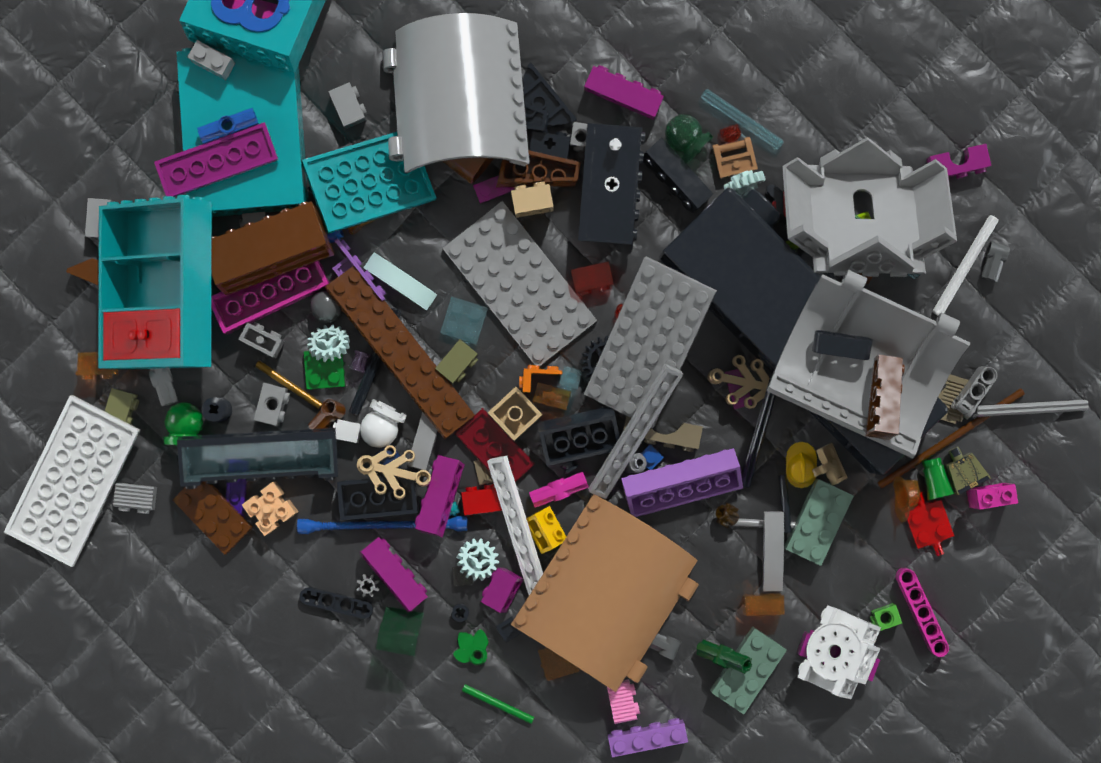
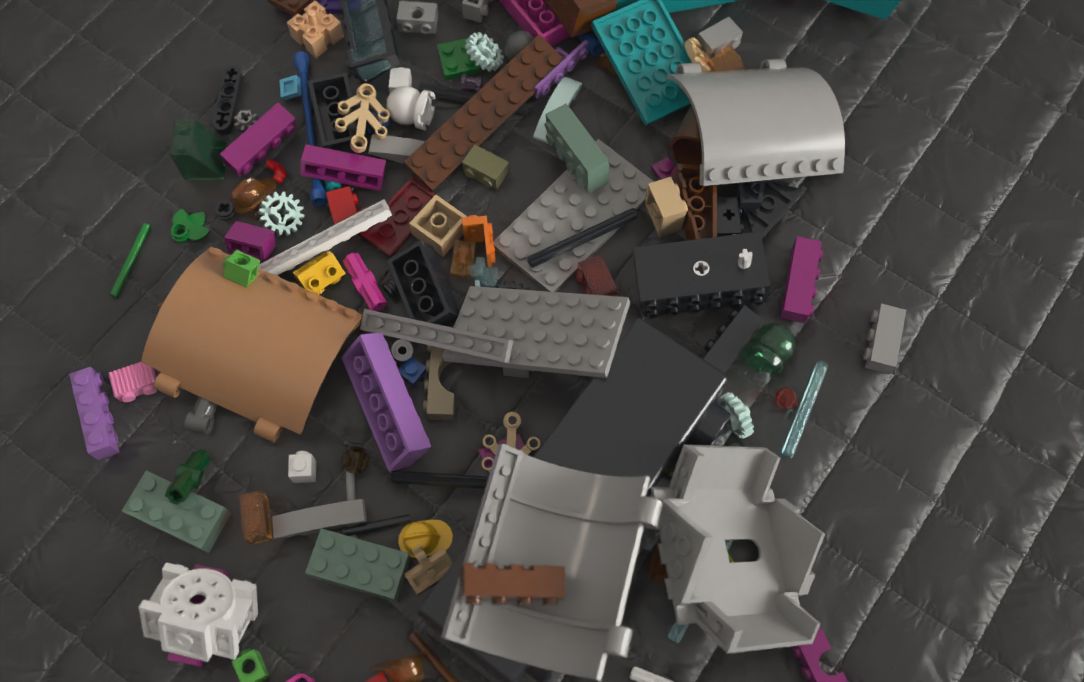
camera: 75 degrees right, 20 degrees down
(288, 384) = (439, 31): pearl gold bar -> none
(326, 416) = (417, 63): reddish brown piece -> none
(334, 539) = (290, 87): none -> medium azure plate
(368, 132) = (696, 55): none -> tan tile
(380, 105) = (726, 60): none -> clear orange piece
(428, 557) = (280, 171): none -> red arm
(449, 584) = (252, 192): none -> clear orange piece
(461, 272) = (577, 149): none -> sand green brick
(464, 320) = (529, 170): clear light blue plate -> none
(542, 590) = (241, 268): none -> bright green brick
(550, 283) = (582, 237): none -> black axle
(691, 32) = (884, 338): none -> light grey brick
(726, 561) = (302, 467): none -> white brick
(737, 163) = (759, 413): medium nougat plate -> none
(842, 345) = (568, 525): black beam -> none

